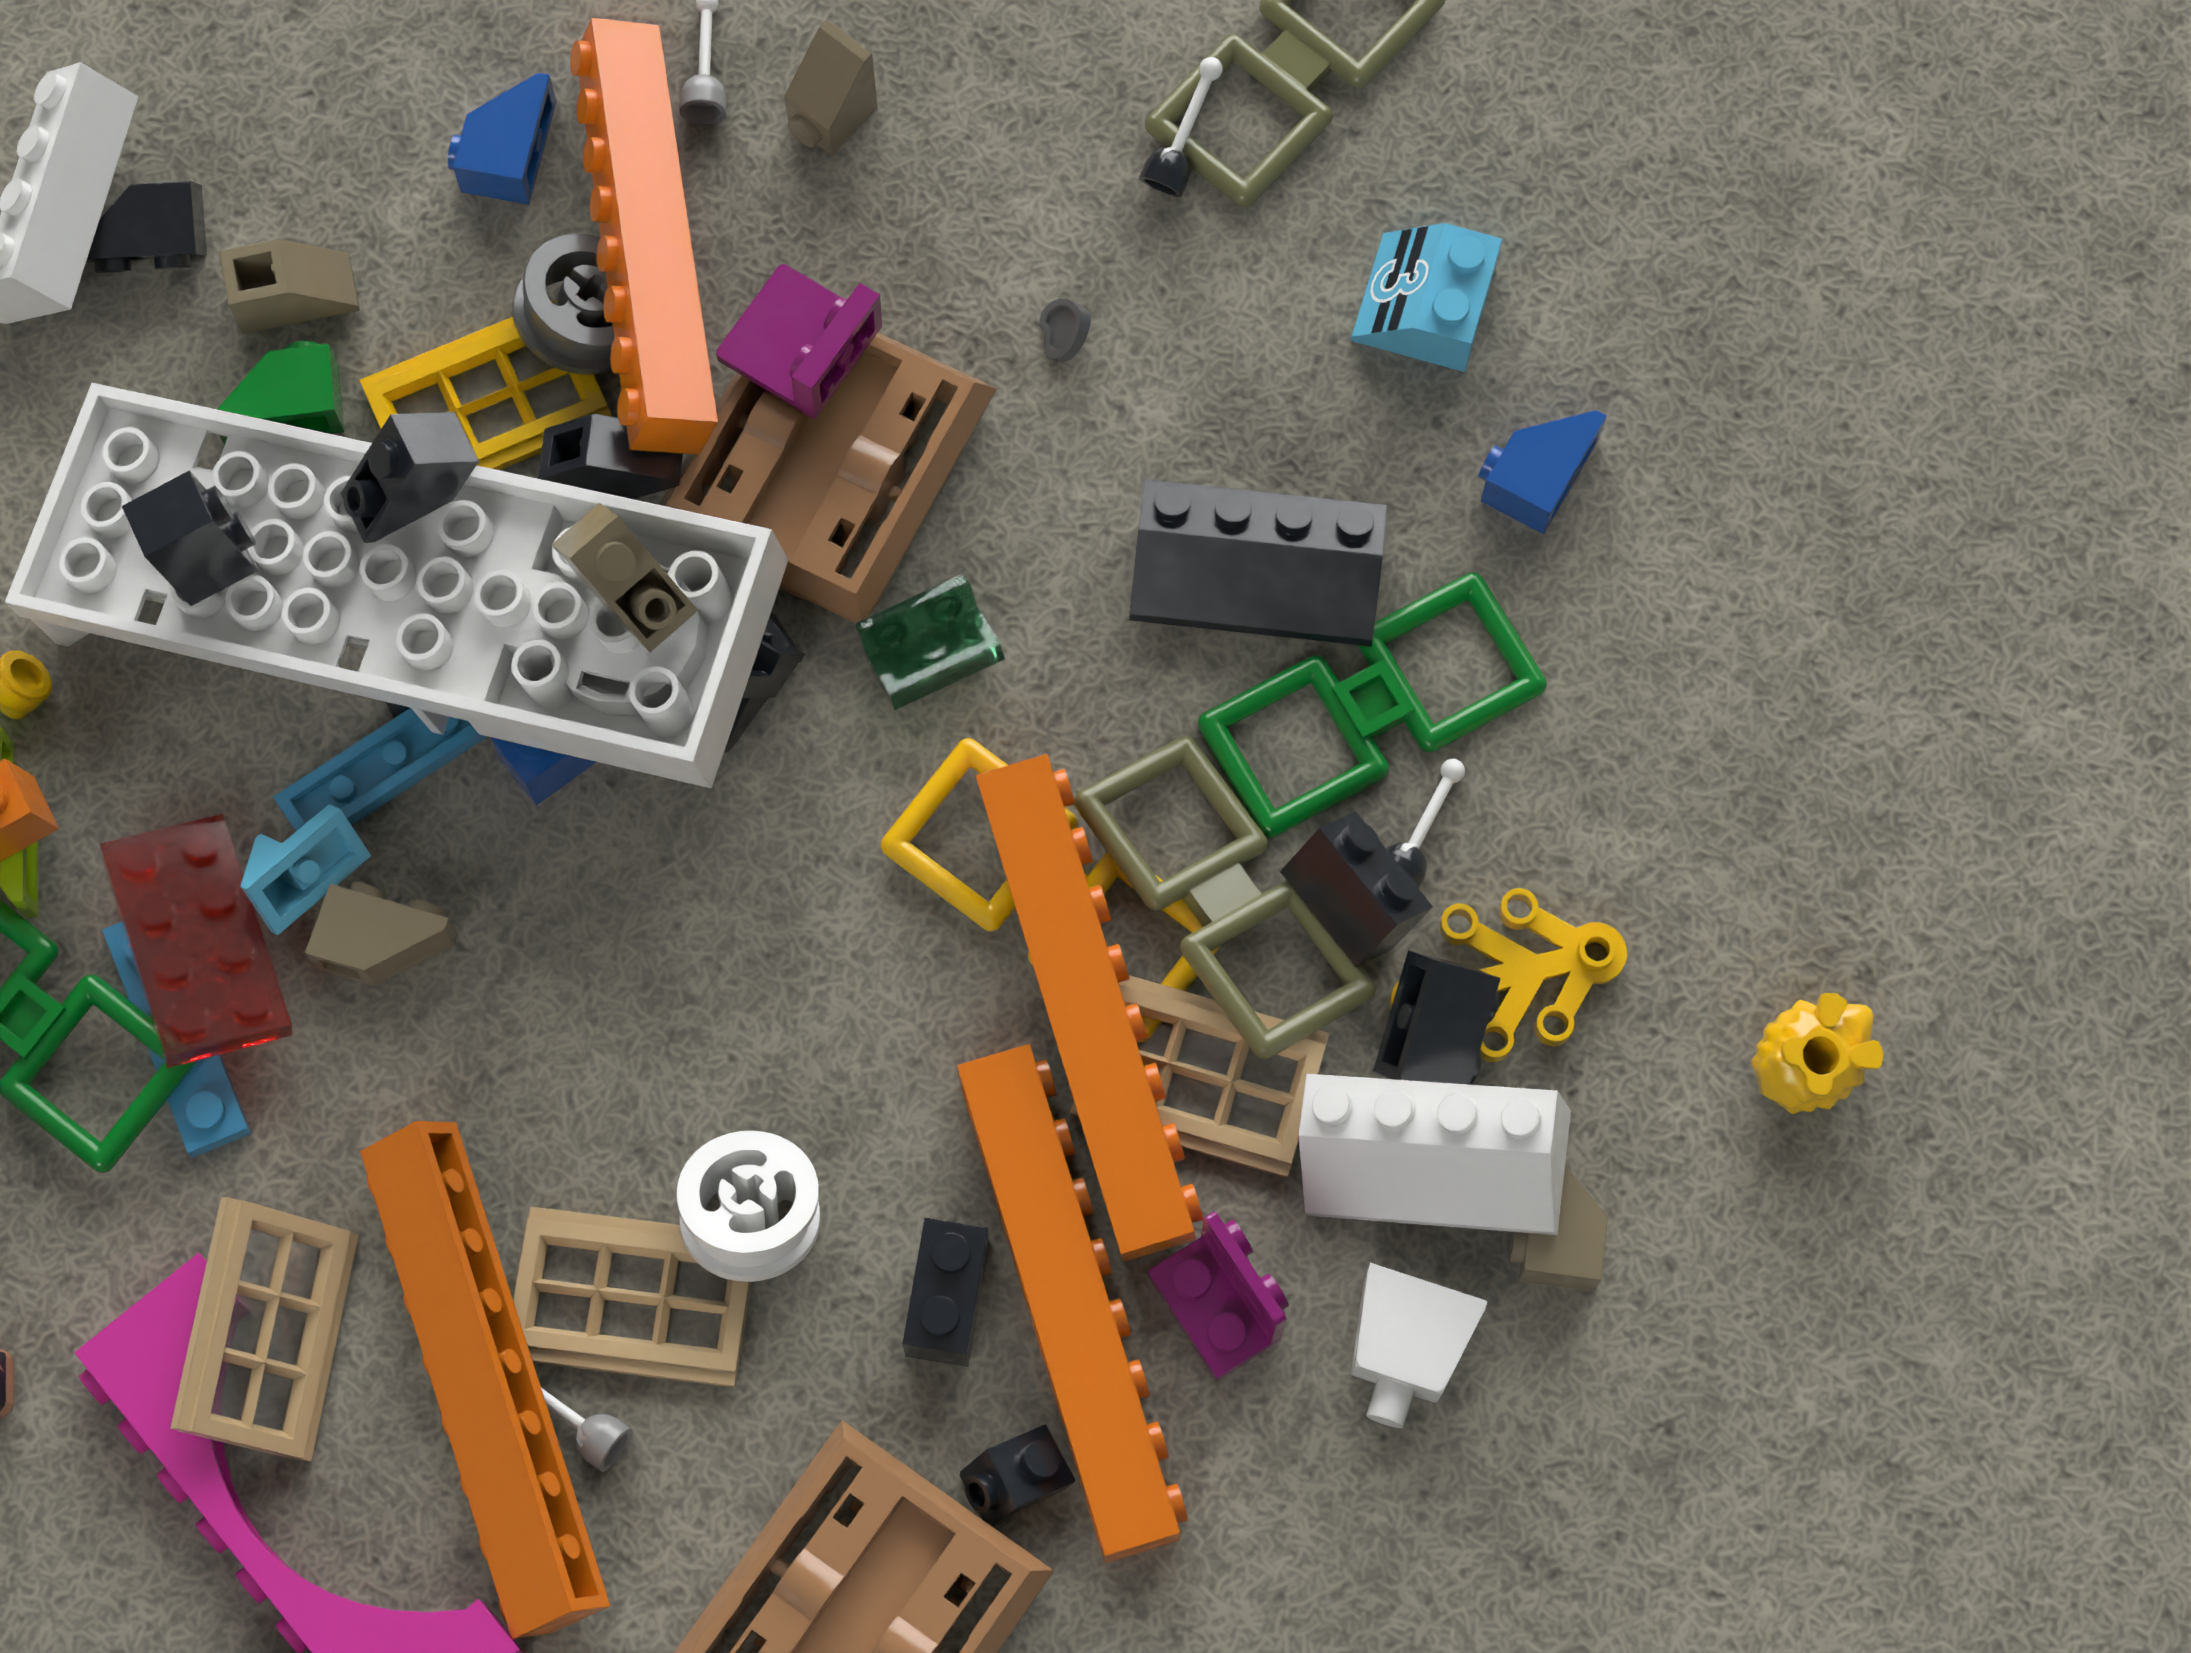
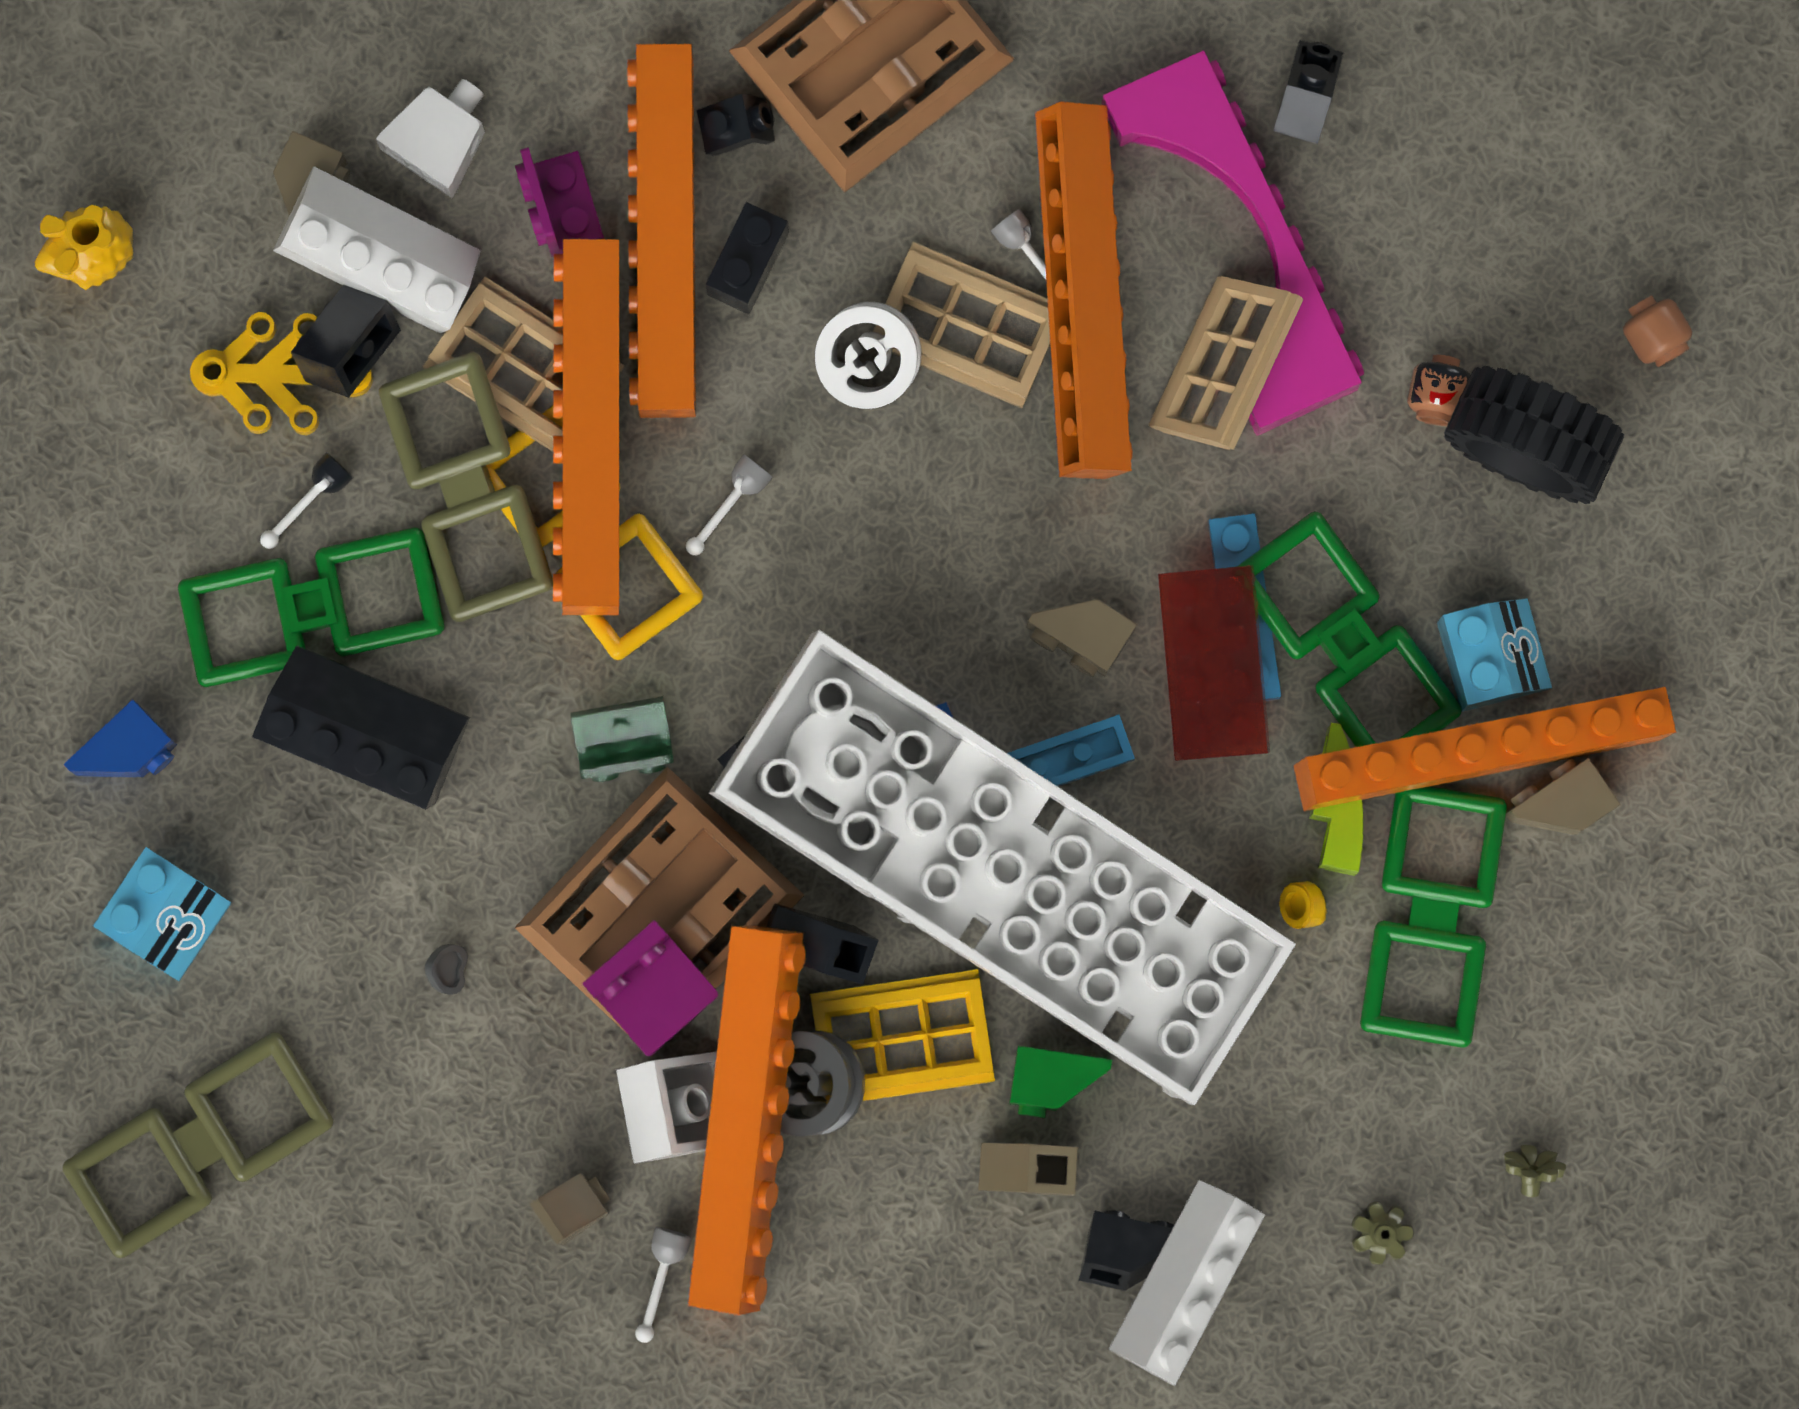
camera: 165 degrees left, 10 degrees up
(192, 537) = (1141, 918): black brick -> none
(296, 874) = (1133, 684): medium azure slope -> none
(408, 472) = (970, 923): black slope -> none
(505, 142) = (835, 1246): blue slope -> none
(624, 576) = (832, 782): dark tan slope -> none
(740, 236) = (667, 1105): none -> white slope
(865, 1012) = (747, 479): none -> hinge
(1168, 167) = (326, 1077): hinge -> none
(1356, 888) = (370, 459): black brick -> none

